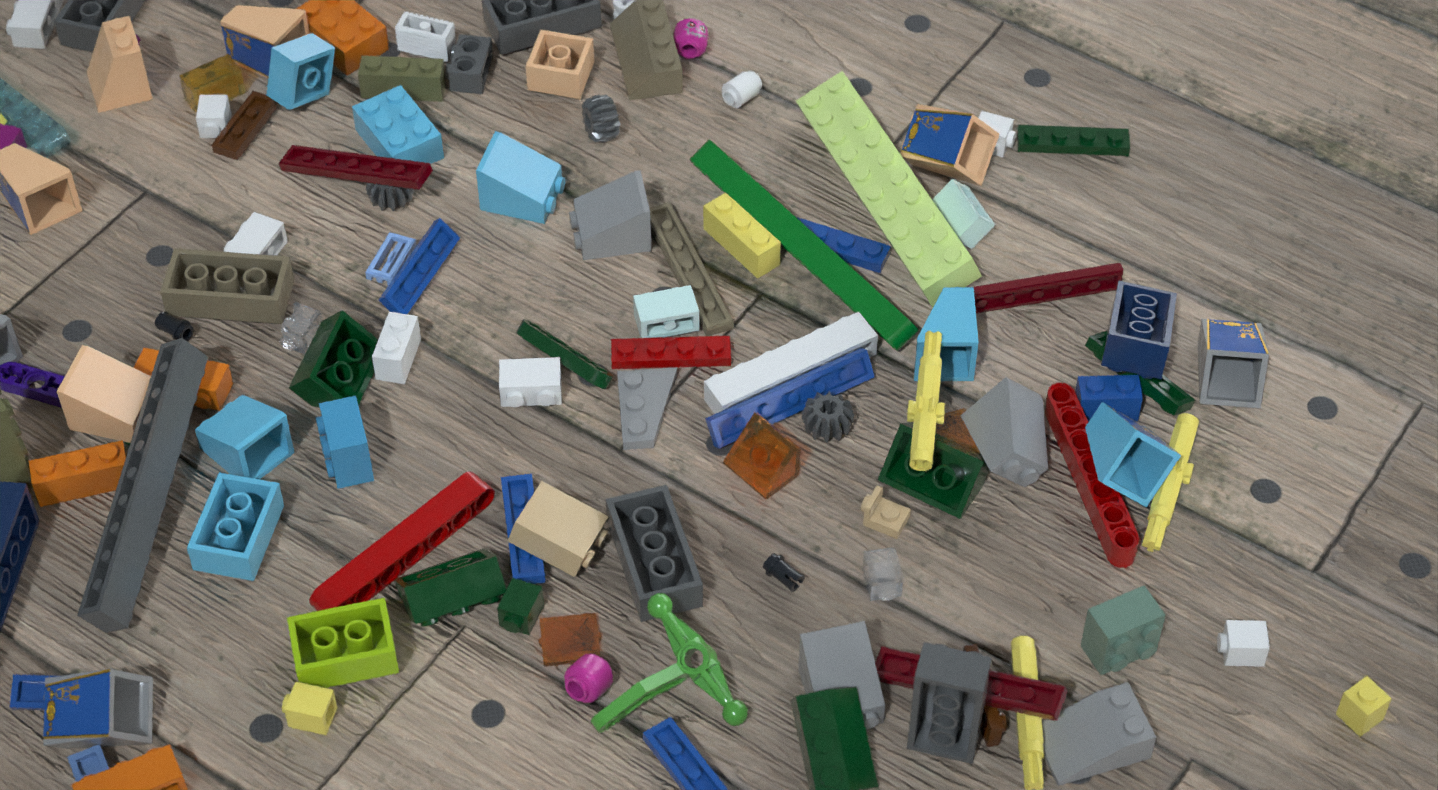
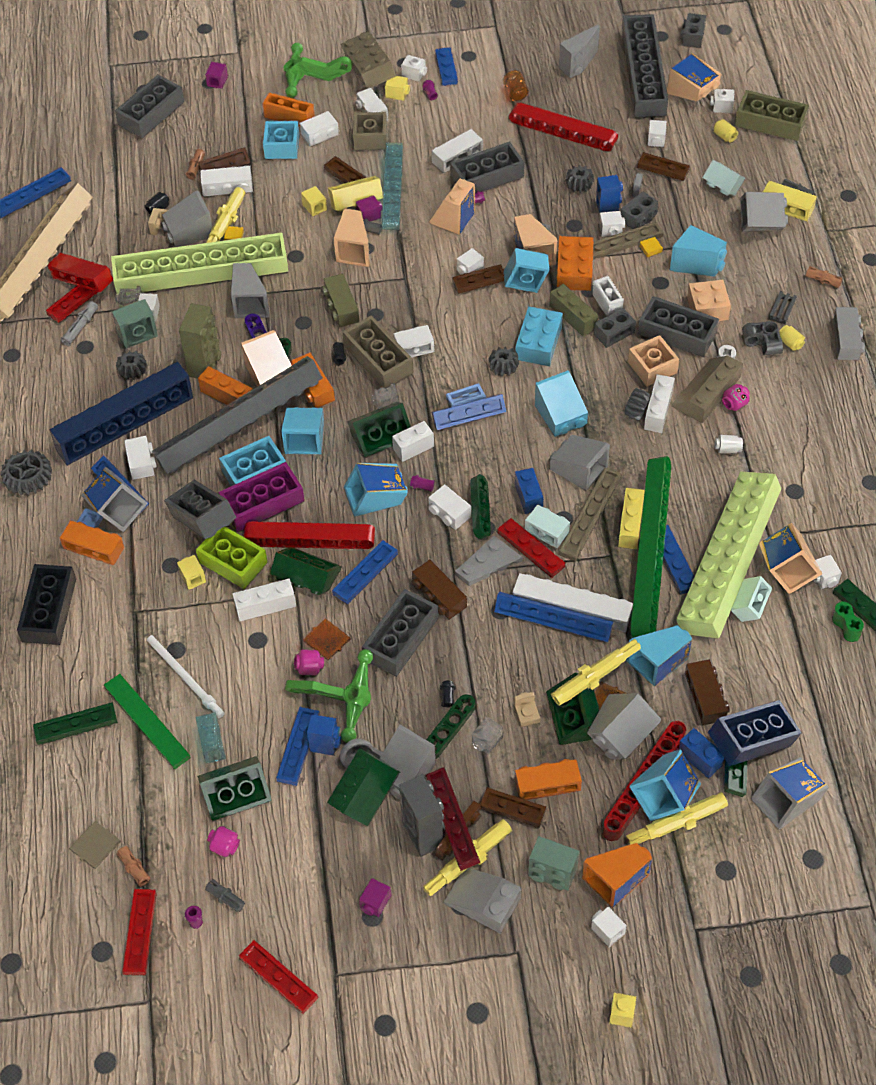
camera: 50 degrees right, 5 degrees up
(63, 639) = (139, 457): none -> white brick
(100, 267) = (340, 300): none -> olive brick
(213, 78) = (489, 246): clear yellow brick -> none
(241, 621) = (200, 509): none -> dark grey brick
(291, 551) = (263, 495): none -> magenta brick
(344, 442) = (336, 466): dark azure brick -> none
(356, 167) = (496, 338): dark red tile -> none
(416, 432) = (374, 487): none -> slope
(445, 659) = (264, 599): none -> white brick
(463, 384) = (422, 483): none -> magenta pin
(520, 606) = (320, 605): dark green brick -> none
(559, 529) = (373, 584): tan brick -> none
(597, 294) = (528, 489): none -> blue brick
(627, 471) = (439, 589): none -> reddish brown brick
(634, 112) = (659, 403): none -> white brick
(717, 731) = (323, 735): none -> blue brick
(764, 457) = (503, 634): clear orange slope -> none
(772, 718) = (351, 748): none -> light grey hat
(827, 416) = (558, 640): dark grey gear -> none
(827, 578) = (452, 728): none -> dark green beam
(999, 560) = (548, 779): none -> orange brick
(1003, 620) = (513, 807): none -> reddish brown plate
(1034, 339) = (706, 691): none -> reddish brown brick
(1047, 287) = (742, 670): dark red tile -> none
(1072, 163) = (847, 621): none -> green axle
(1195, 580) = (617, 872): none -> orange slope

